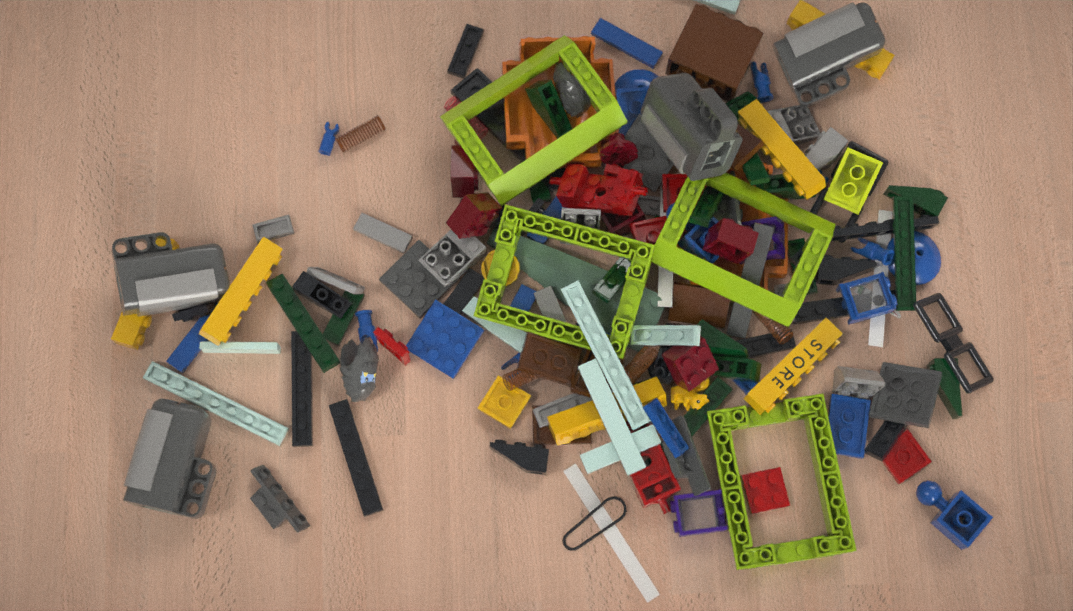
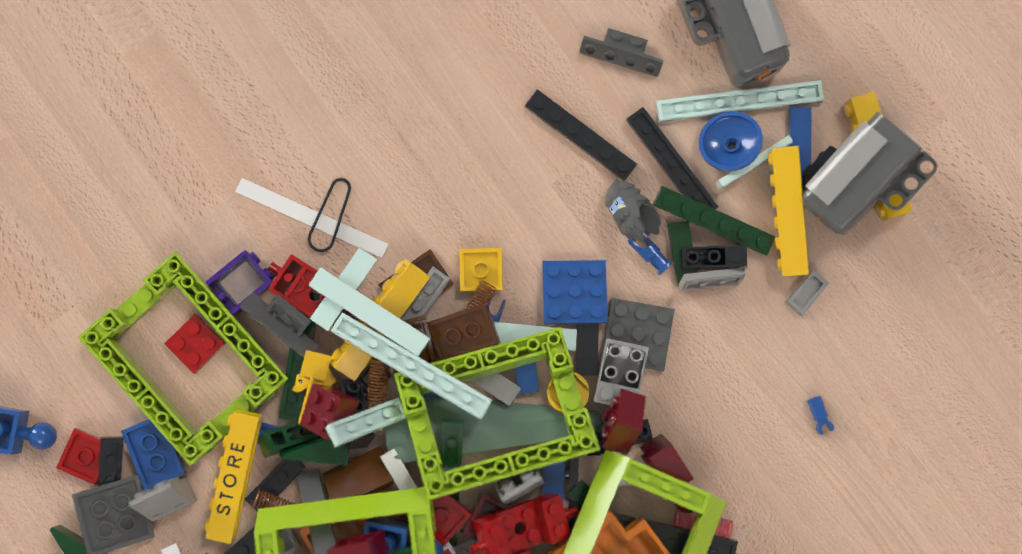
camera: 145 degrees right, 10 degrees up
(244, 386) = (729, 130): none -> blue dish
(351, 132) = (788, 441): dark orange piece -> none
(382, 233) = (702, 356): light grey tile -> none
(398, 349) = (624, 253): red plate -> none
(529, 459) = (427, 231): black slope -> none
(666, 427) = (313, 334): blue tile -> none
(680, 406) = (315, 367): none -> yellow piece

